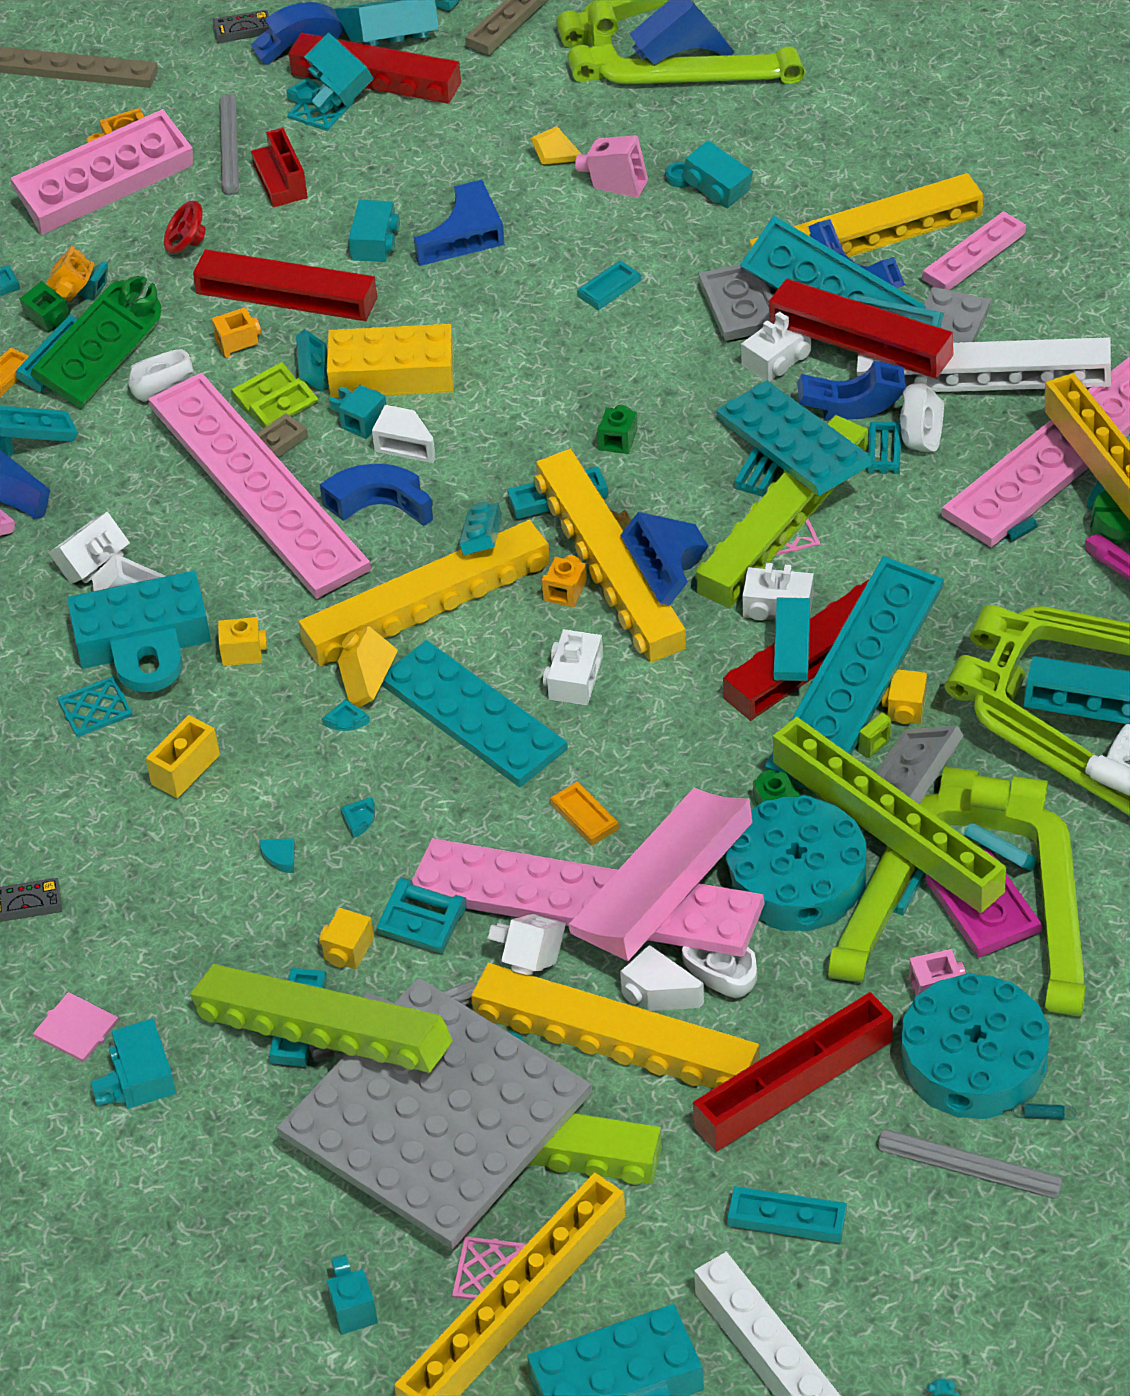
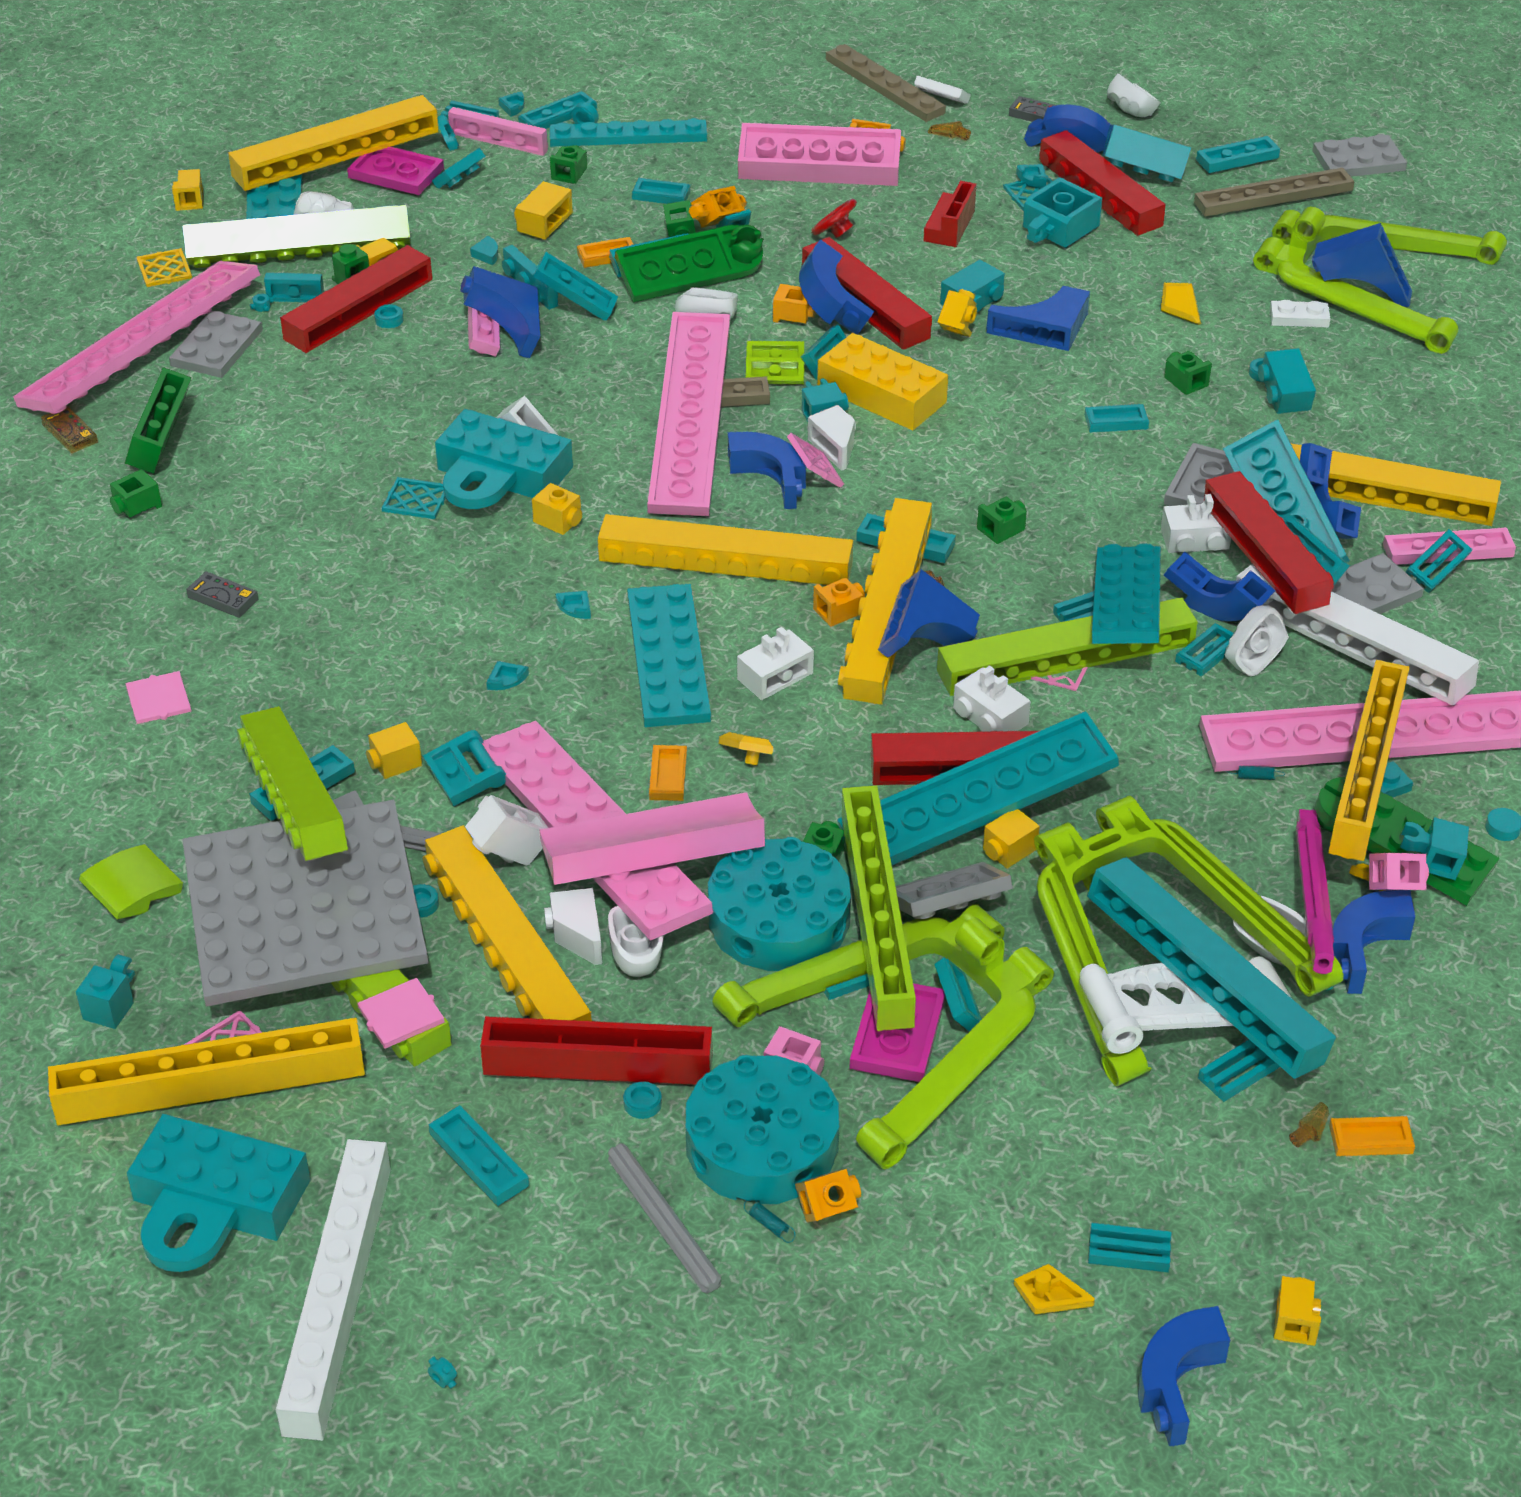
camera: 35 degrees right, 5 degrees down
(89, 548) = (532, 383): white brick -> none
(138, 48) = (942, 90): none -> white tile
(139, 1065) = (159, 748): teal hinge -> none
(182, 756) = (424, 559): yellow brick -> none
(185, 85) = (950, 130): none -> clear orange bar
(229, 146) = (937, 183): light grey axle -> none
(251, 1195) = (130, 881): none -> lime slope
(261, 303) = (826, 293): none -> blue arch
(279, 853) = (422, 667): teal tile -> none
(339, 71) = (1059, 159): teal hinge -> none
(364, 664) = (621, 570): yellow slope -> none
(376, 116) = (1061, 213): none -> teal hinge
(390, 259) = (958, 312): none -> yellow brick
(414, 466) = (815, 460): none -> bright pink window
(480, 527) = (810, 525): teal plate -> none
(615, 165) = (1210, 334): bright pink torso -> none
(617, 1145) = (400, 1013): none -> bright pink piece
(626, 210) = (1183, 367): none -> green brick
(628, 747) = (752, 744): none -> yellow piece
(657, 106) = (1299, 313): none -> white plate
(792, 639) = (954, 735): teal tile -> none
(856, 1087) = (642, 1100): none -> teal tile
(874, 735) = (951, 850): lime tile -> none
(979, 289) = (1422, 577): none -> teal tile
(1078, 1057) = (815, 1197): none -> light orange brick

